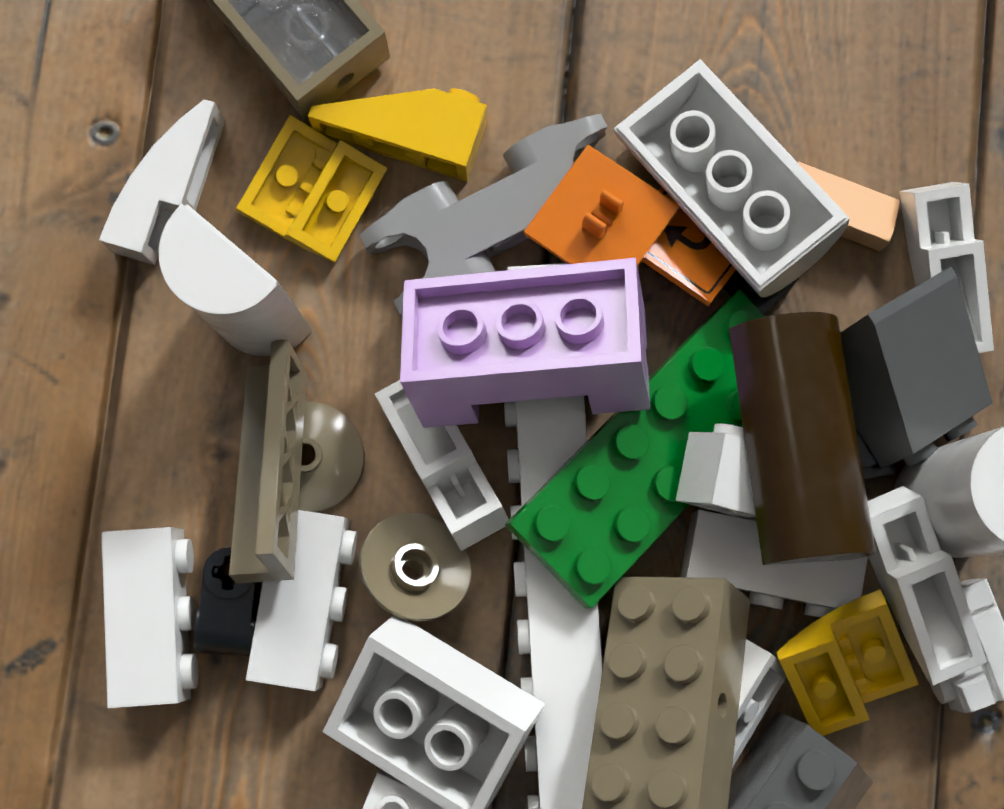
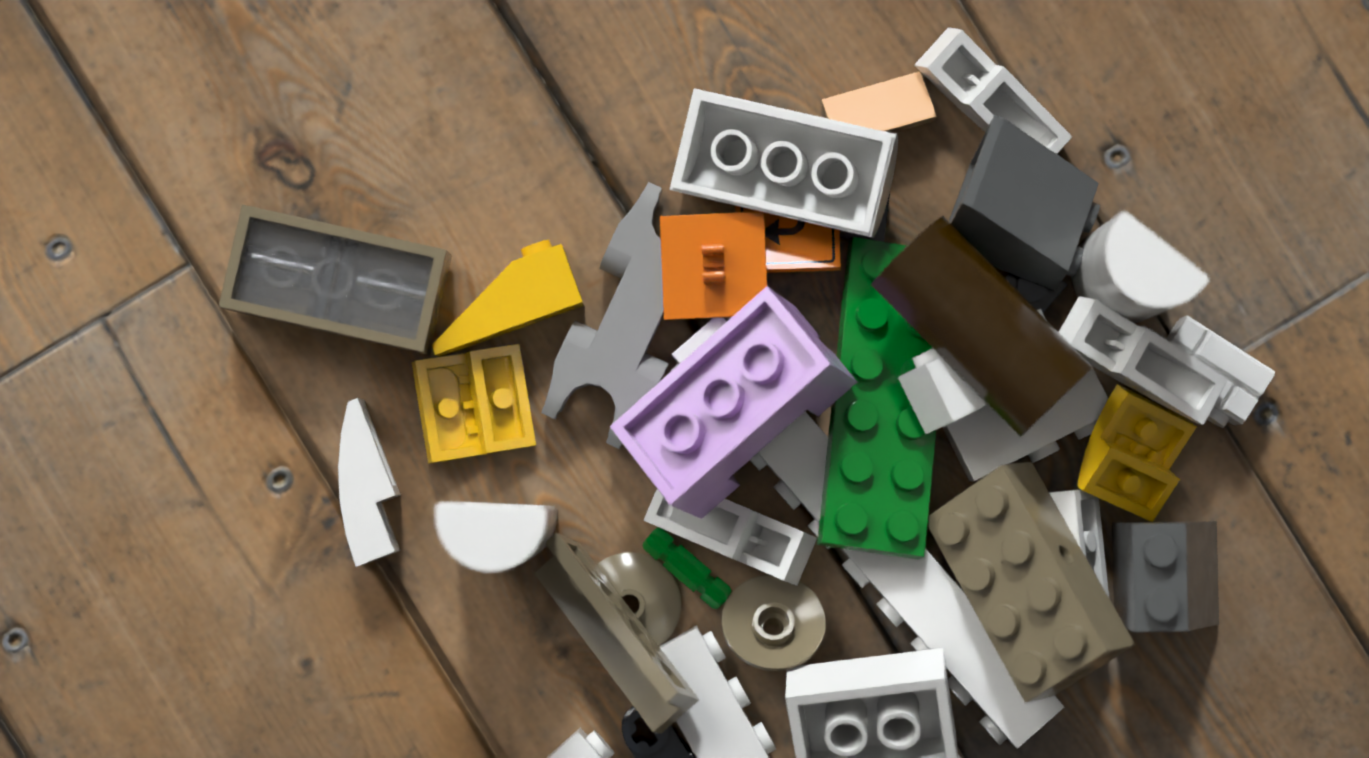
camera: 35 degrees left, 5 degrees up
(379, 463) = (687, 568): none -> green axle

